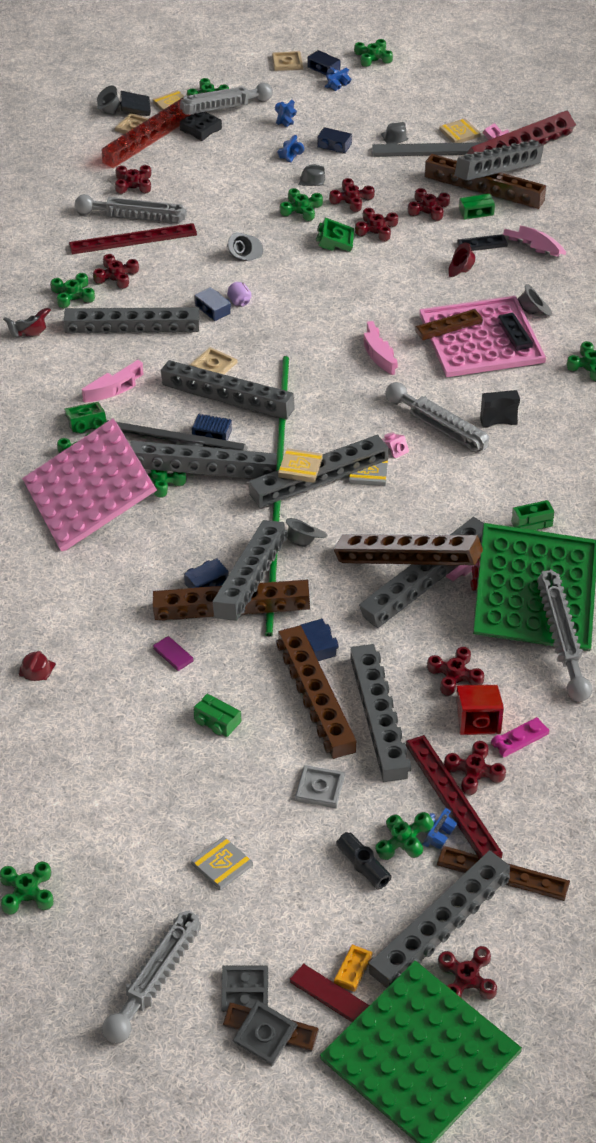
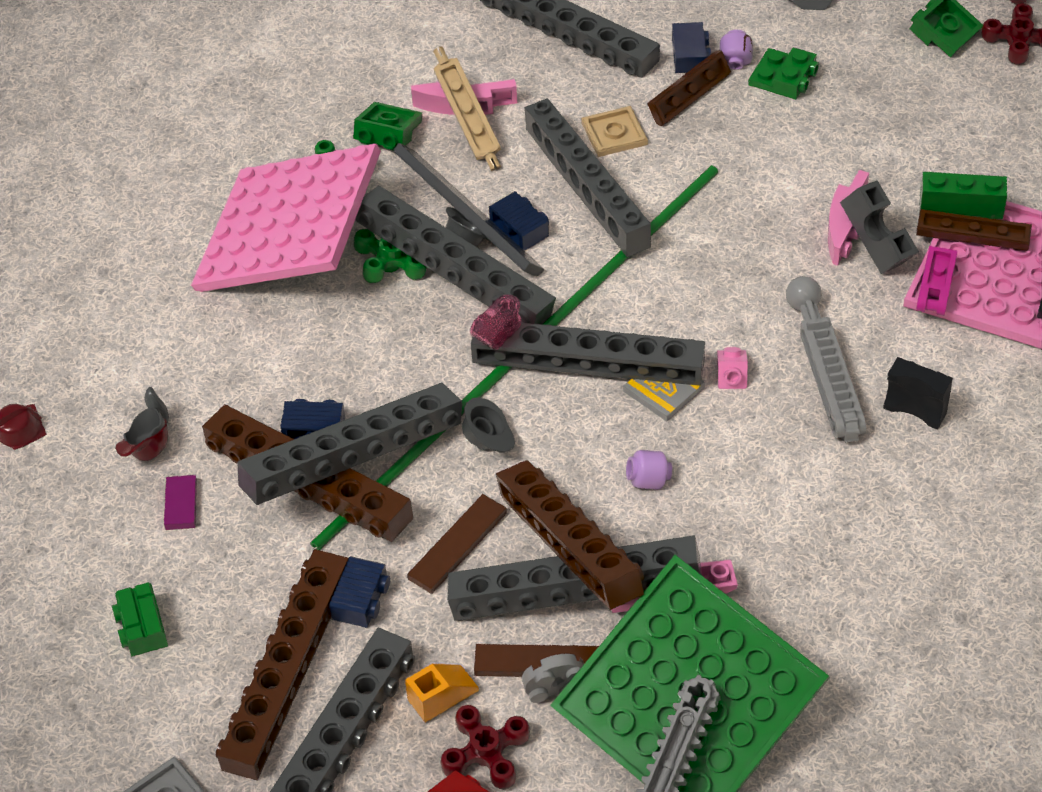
camera: 40 degrees right, 5 degrees up
(120, 626) = (148, 430): none -> hair
(128, 385) = (466, 108): none -> tan plate
(234, 323) = (689, 88): none -> reddish brown tile
(268, 474) = (497, 322): none -> clear pink piece
(276, 295) = (785, 72): none -> green plate
(300, 465) = (557, 331): tan tile -> none
(341, 593) = (457, 543): none -> reddish brown tile
(403, 509) = (648, 469): none -> lavender head
(406, 661) = (438, 689): none -> light orange slope
(416, 352) = (865, 212): none -> dark grey arch
(431, 308) = (964, 194): none -> green brick
(437, 622) = (513, 660): none -> reddish brown tile
(456, 354) = (937, 280): none -> dark pink plate
(462, 620) = (551, 676): none -> light grey plate
(533, 515) = (808, 581): green brick -> none

